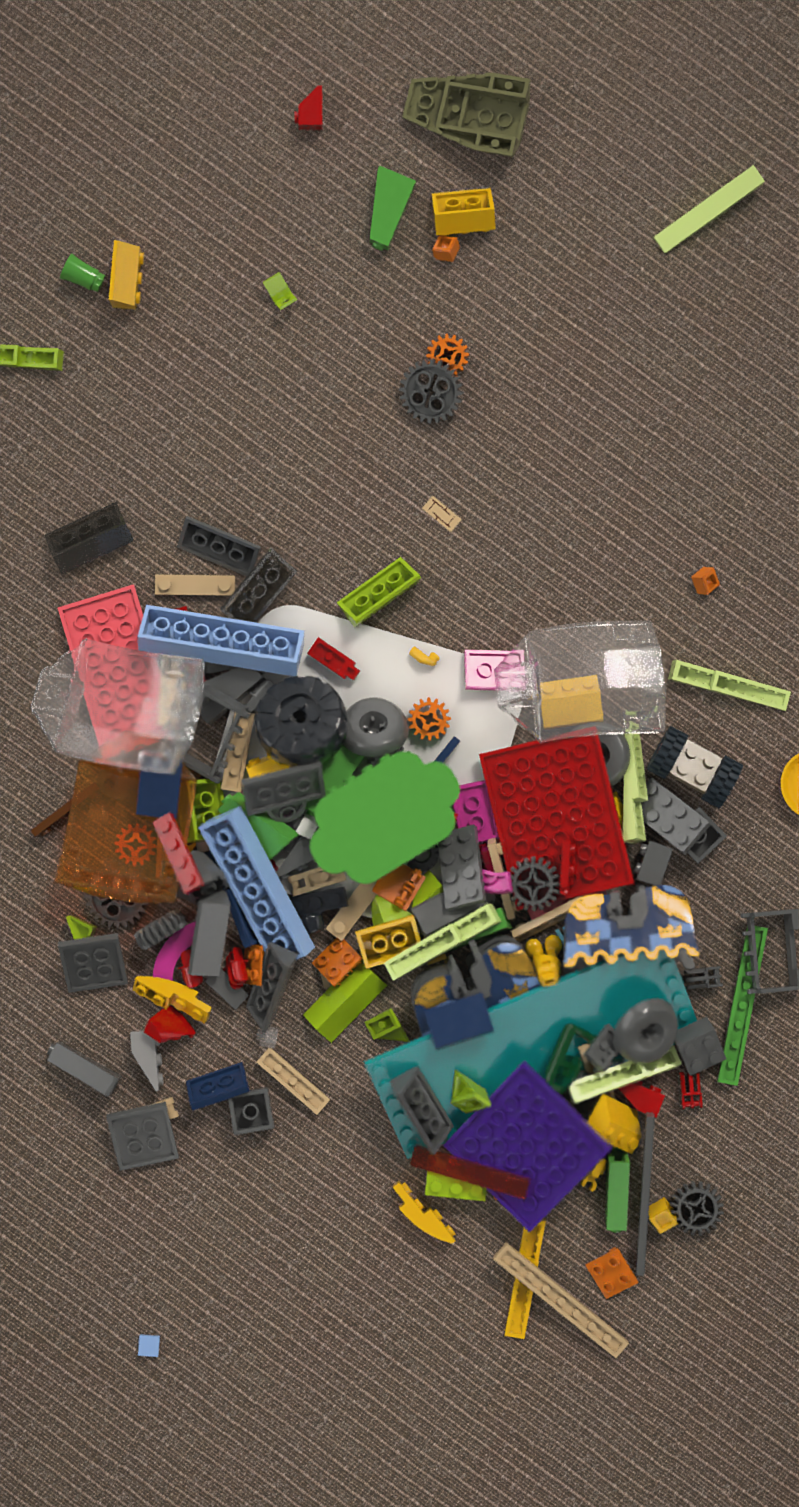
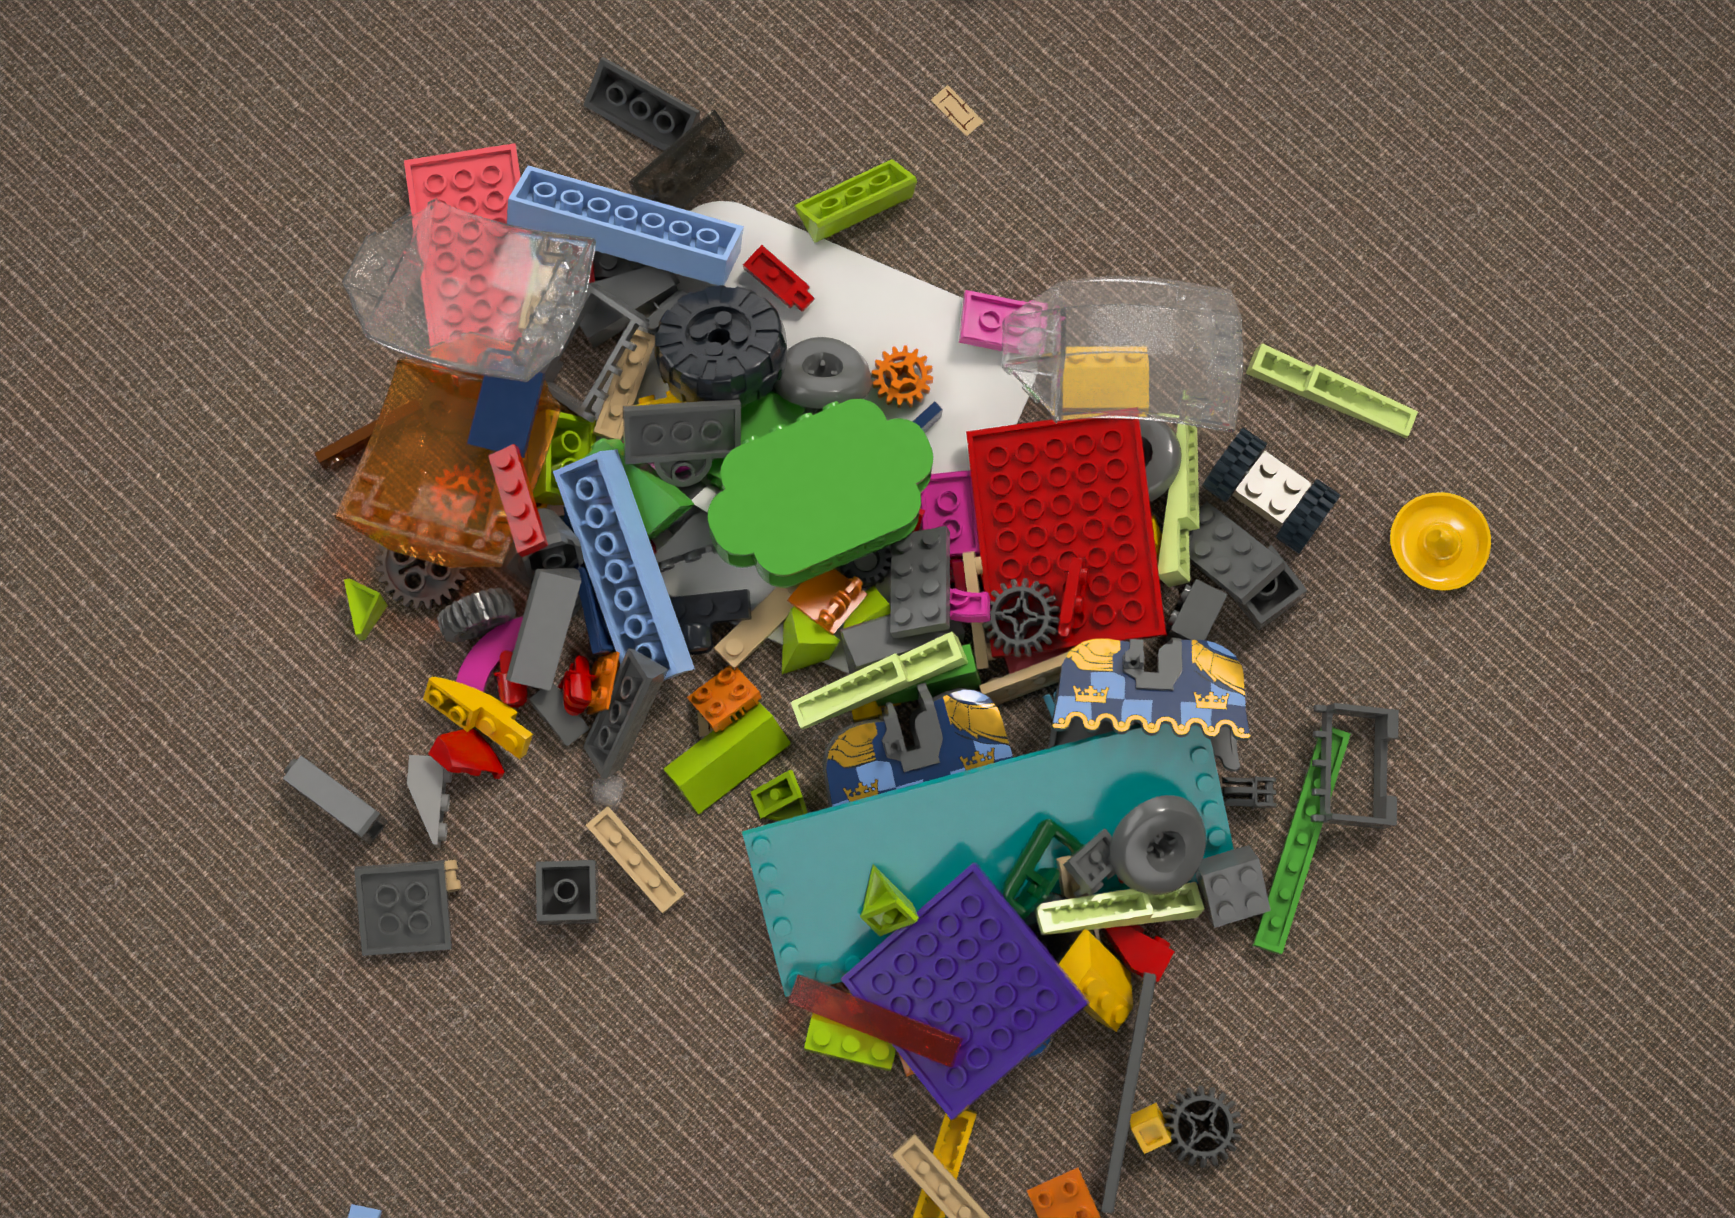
camera: 10 degrees right, 10 degrees down
(88, 538) = (463, 76): clear smoke slope -> none
(93, 962) = (372, 648): dark grey plate -> none
(194, 585) = (596, 157): tan plate -> none
(217, 1086) = (523, 849): dark blue tile -> none
(314, 880) = (709, 577): tan plate -> none
(387, 940) = (798, 670): yellow slope -> none
(422, 1108) = (818, 913): dark grey slope -> none
(423, 658) = (903, 293): yellow arm -> none
(426, 1220) = (802, 1091): yellow slope -> none
(459, 1021) = (888, 788): dark blue tile -> none
(546, 966) = (1027, 735): yellow piece -> none
(594, 1173) = (1061, 1047): yellow plate -> none
(617, 1190) = (1087, 1082): bright green slope -> none
(691, 1091) = (1213, 953): red arm -> none
(705, 580) = (1314, 245): orange slope -> none

